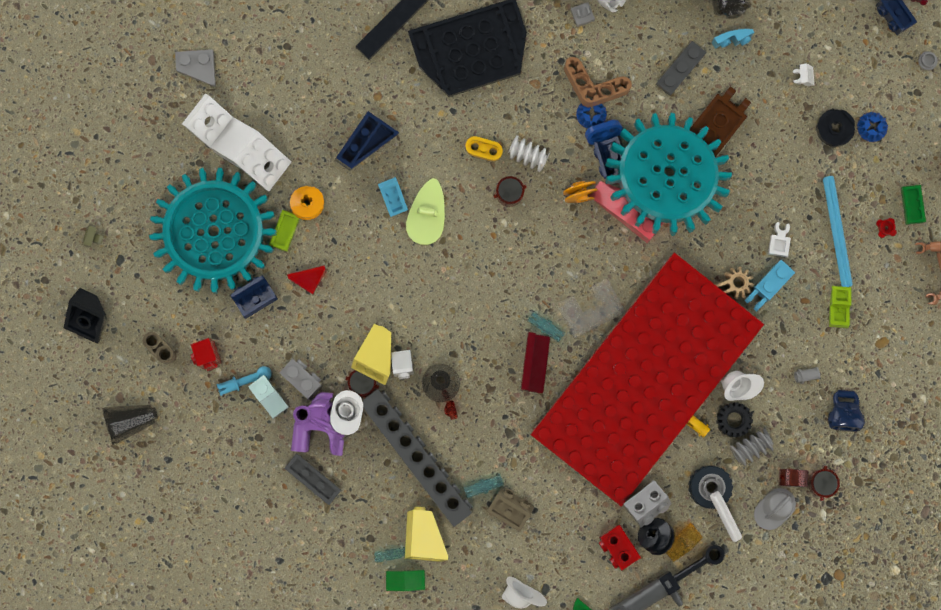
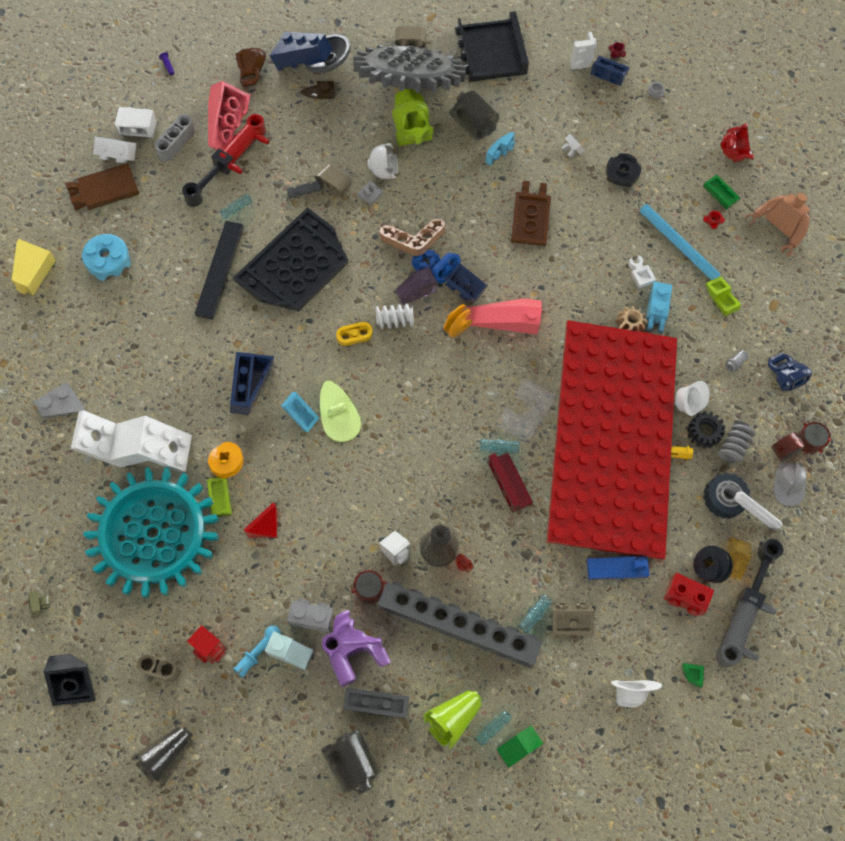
camera: 30 degrees left, 15 degrees down
(253, 296) = (223, 568): dark blue bracket -> none
(266, 514) = (351, 762): none -> clear smoke cylinder
(346, 412) = (371, 618): white piece -> none
(366, 527) = (453, 717): none -> lime cone
(375, 355) = (367, 553): light yellow slope -> none
(423, 537) = (512, 692): light yellow slope -> none
(509, 191) = (397, 354): piece -> none
(566, 135) = (417, 286): none -> clear purple slope
(577, 490) = (617, 568): none -> blue hinge
(647, 504) = (687, 541): light grey brick -> none
(669, 206) = (526, 242): teal gear -> none
(681, 68) = (474, 191): dark grey plate -> none
(872, 135) = (656, 158): blue gear -> none

